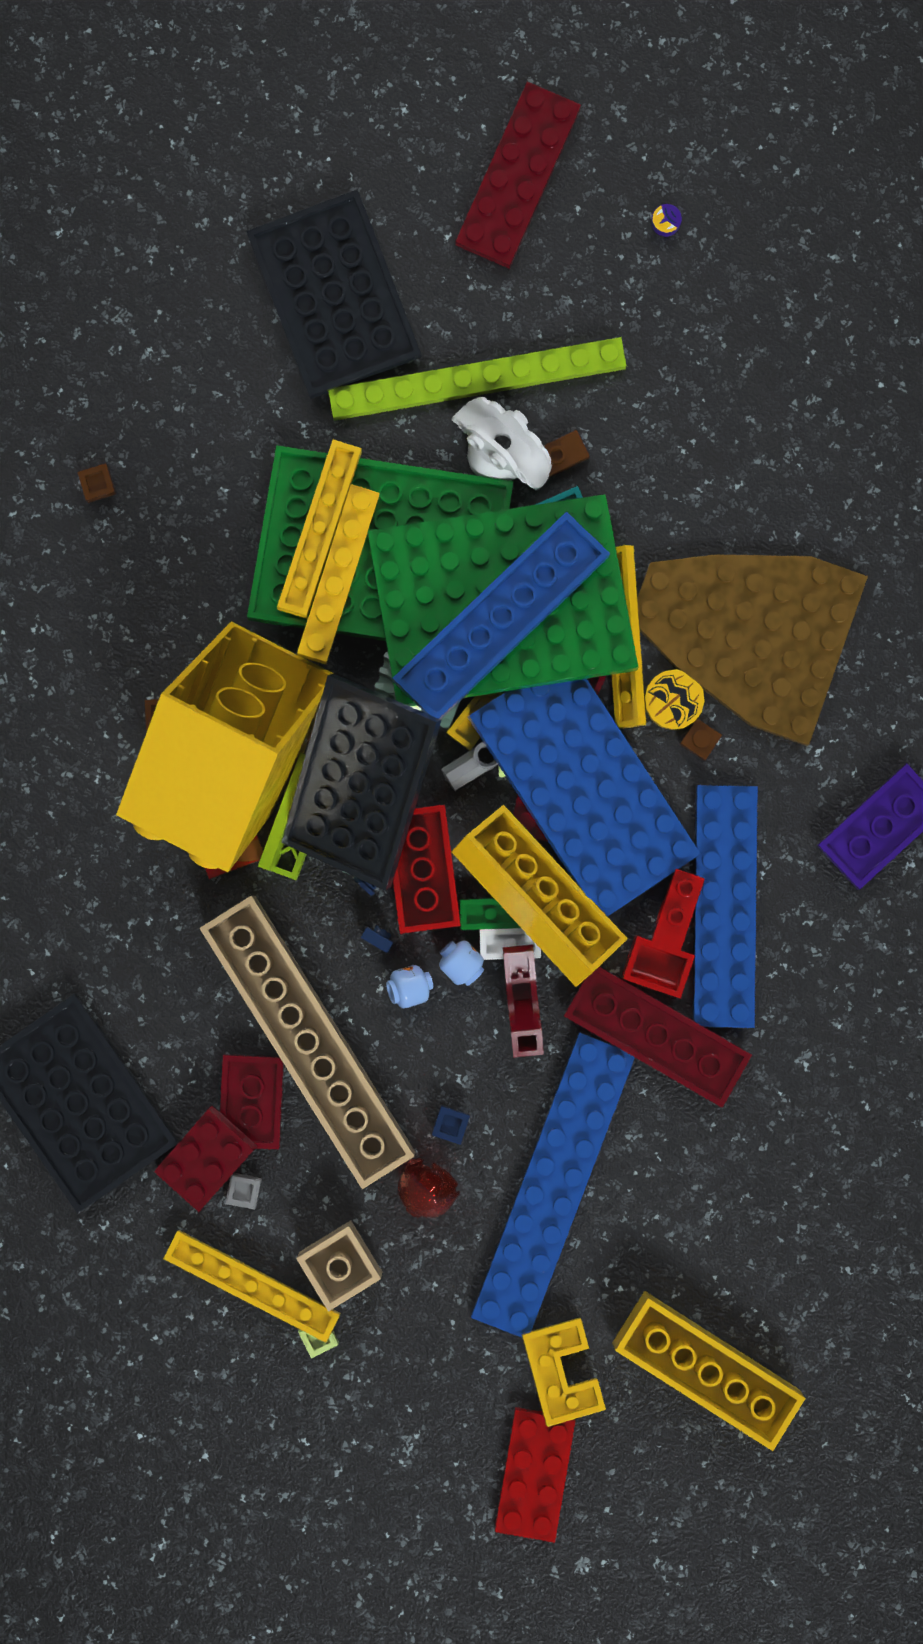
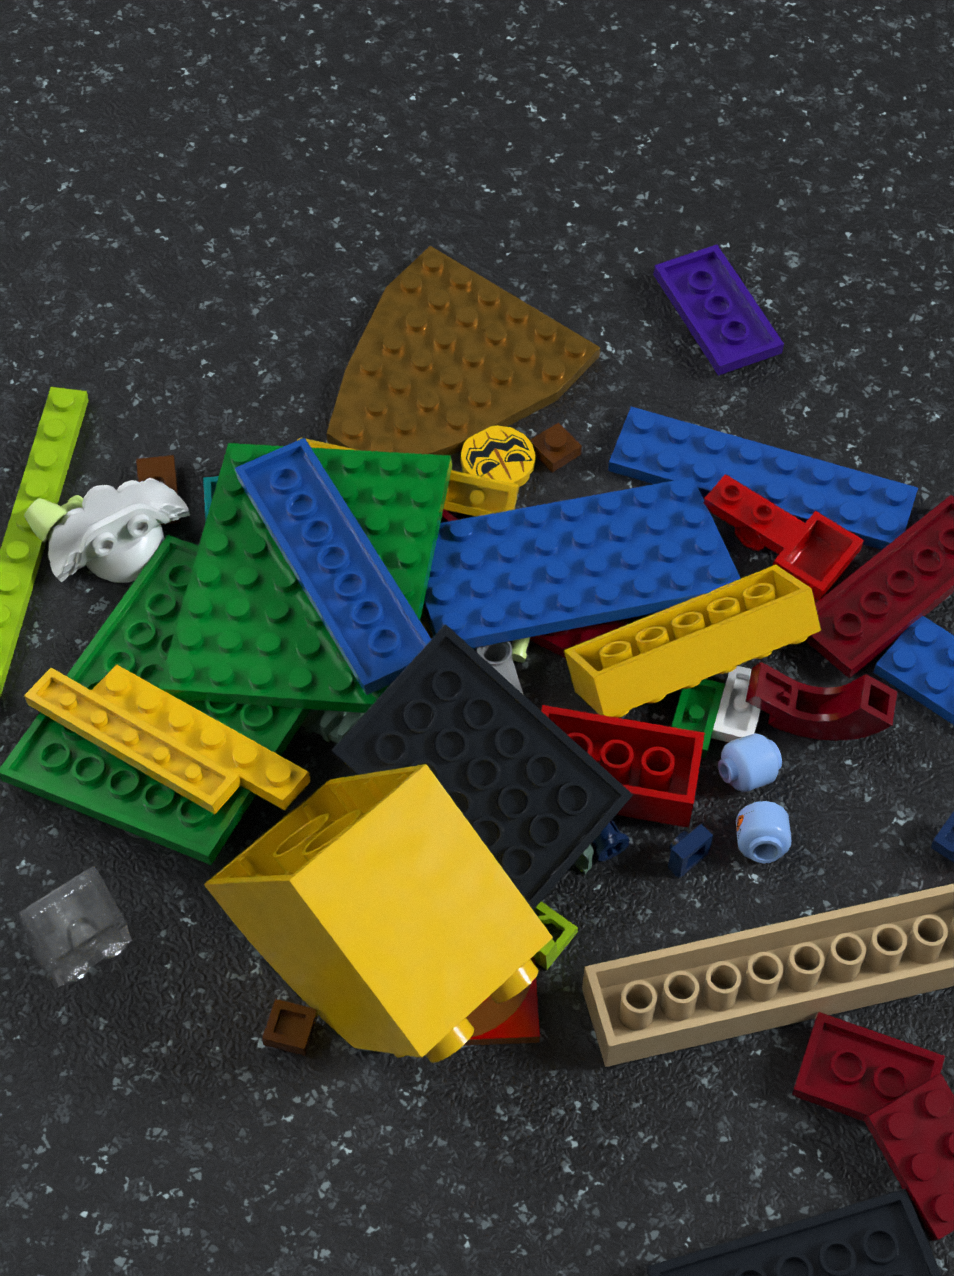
camera: 75 degrees left, 30 degrees down
(176, 550) = (75, 927): none -> clear slope
(492, 388) = (45, 515): none -> yellowish green bar

